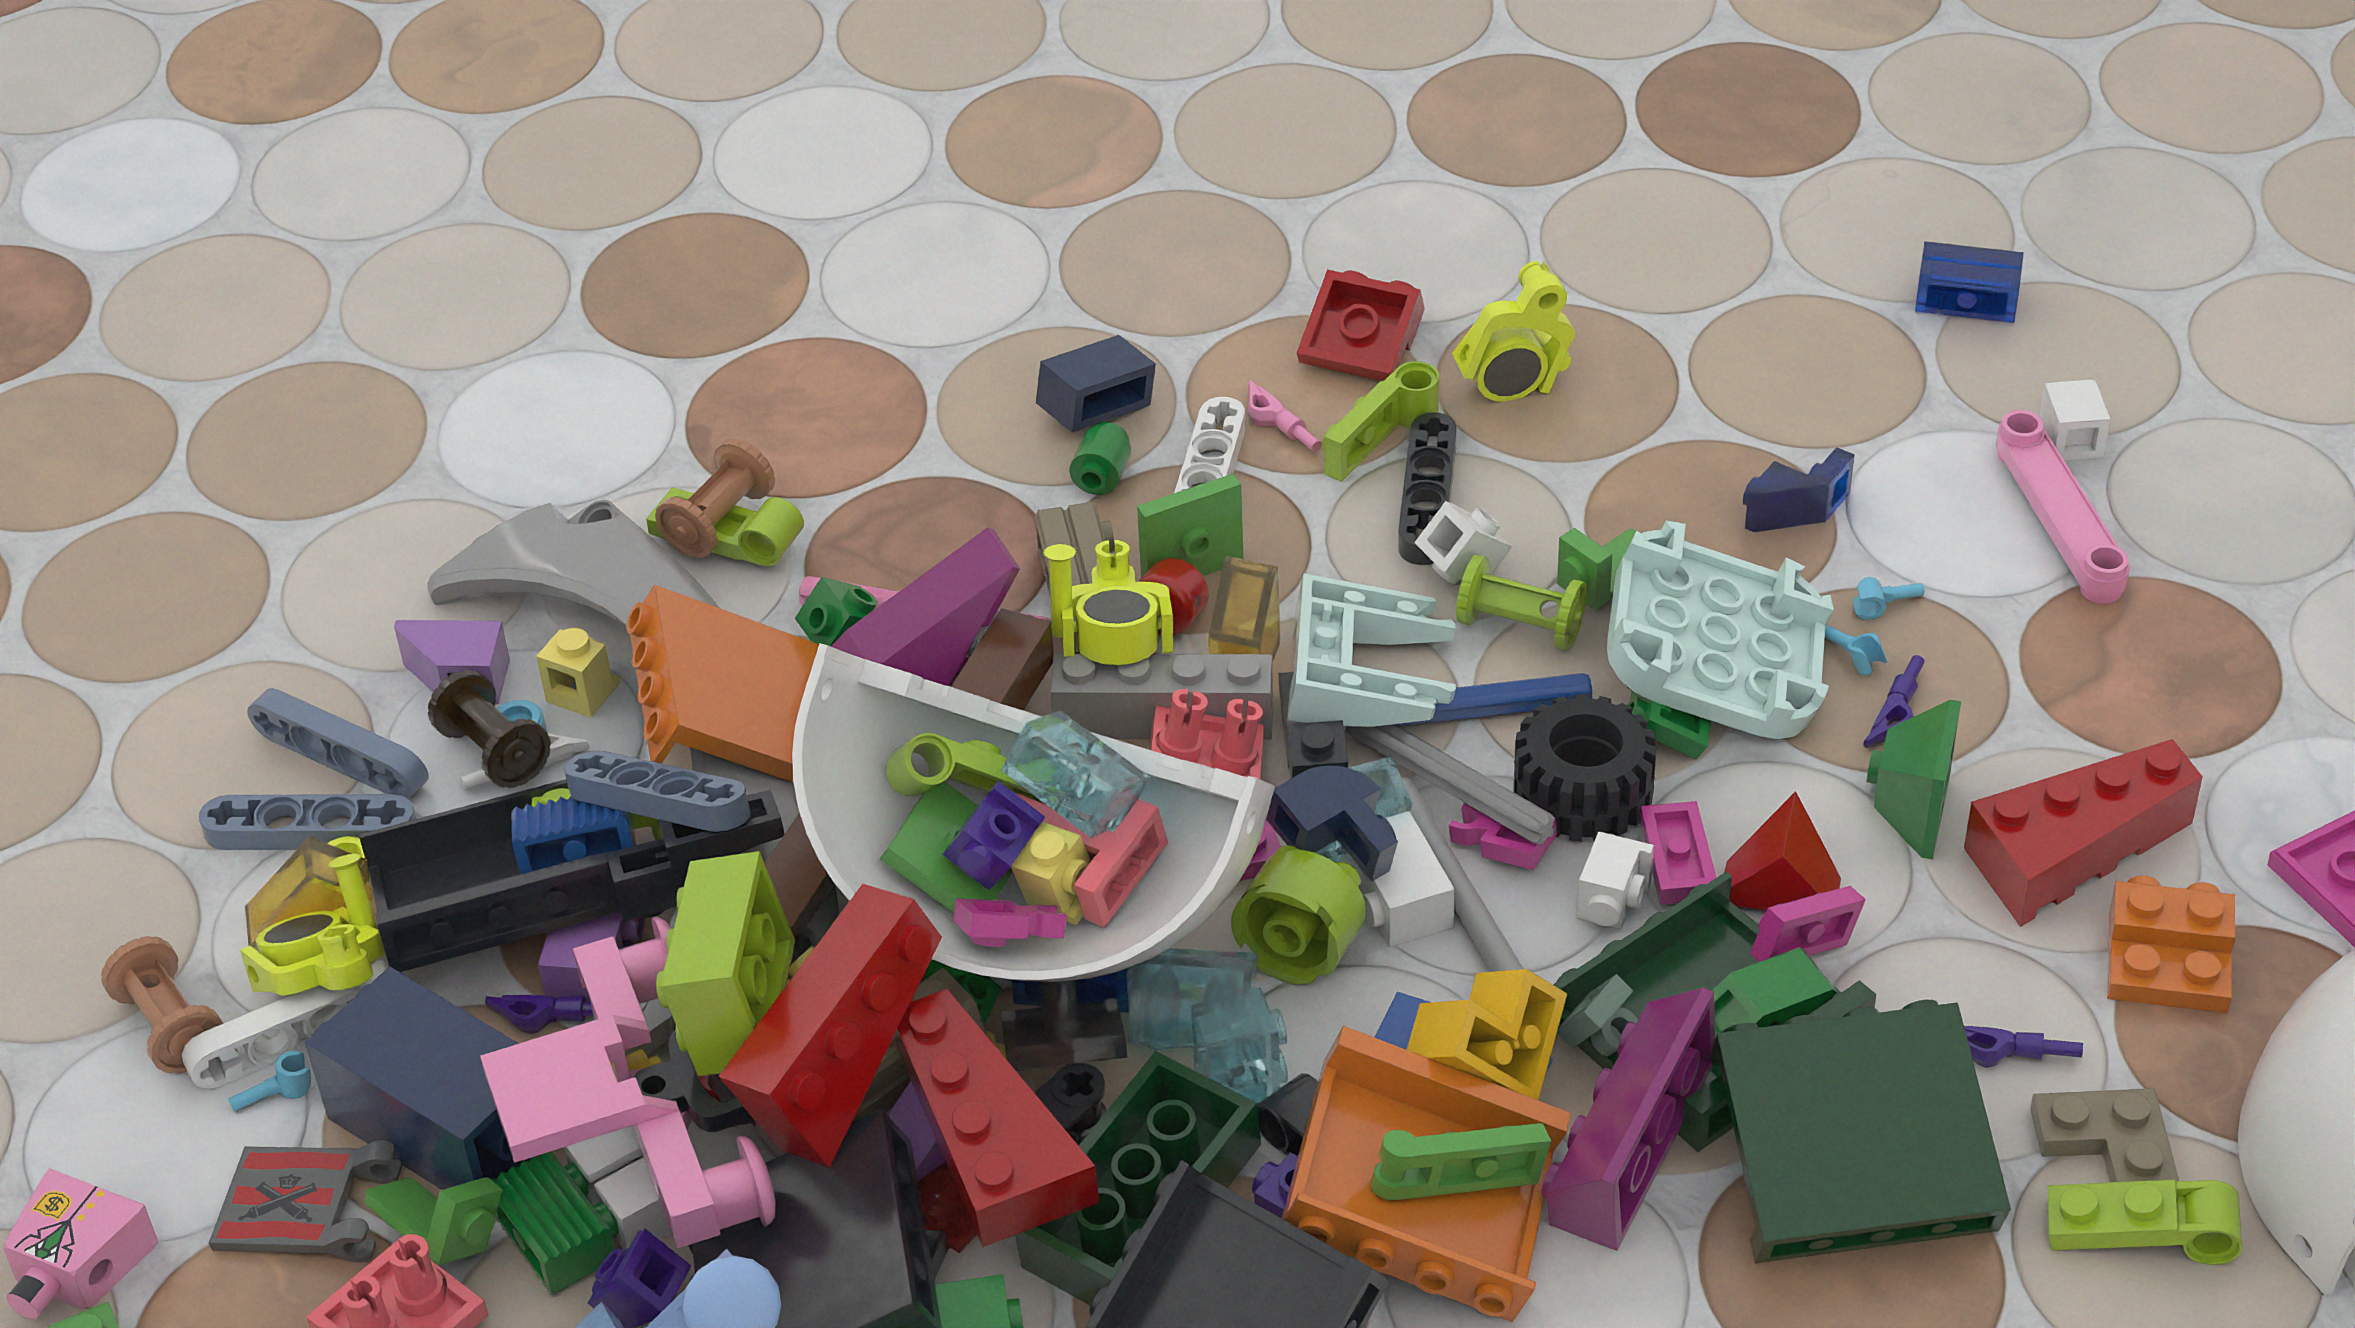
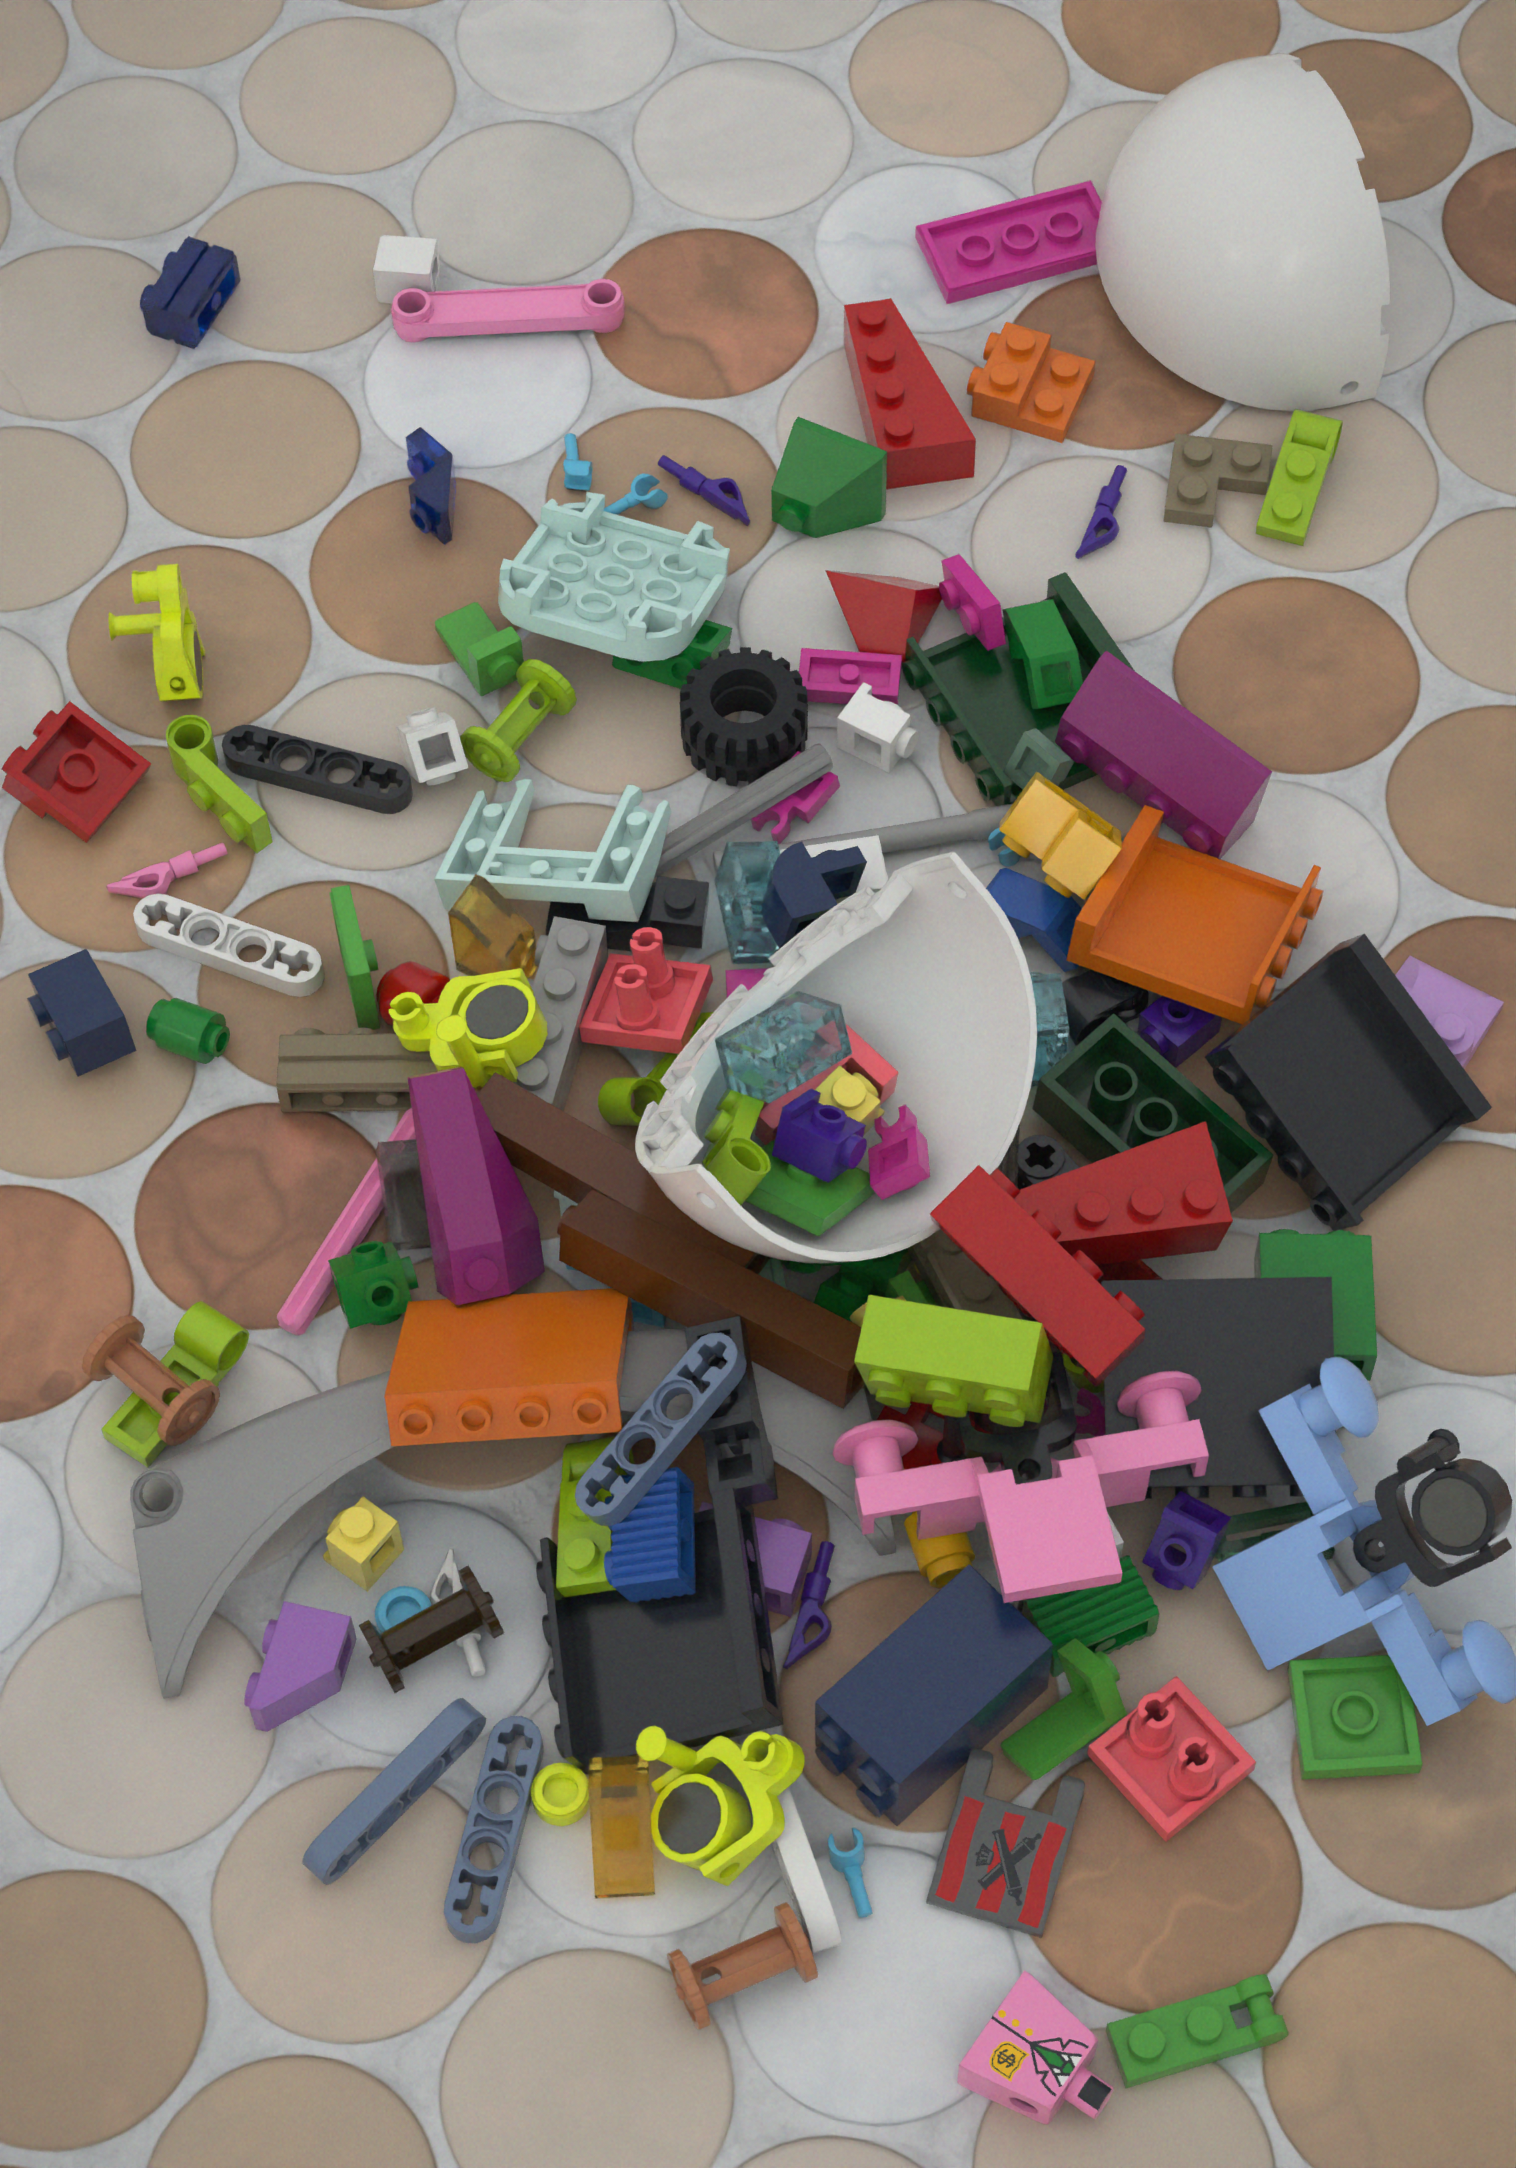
camera: 80 degrees left, 15 degrees up
(1459, 1161) = (1194, 884): bright green plate -> none
(1508, 697) = (620, 754): blue axle -> none
(1860, 1130) = (1207, 611): dark green panel -> none

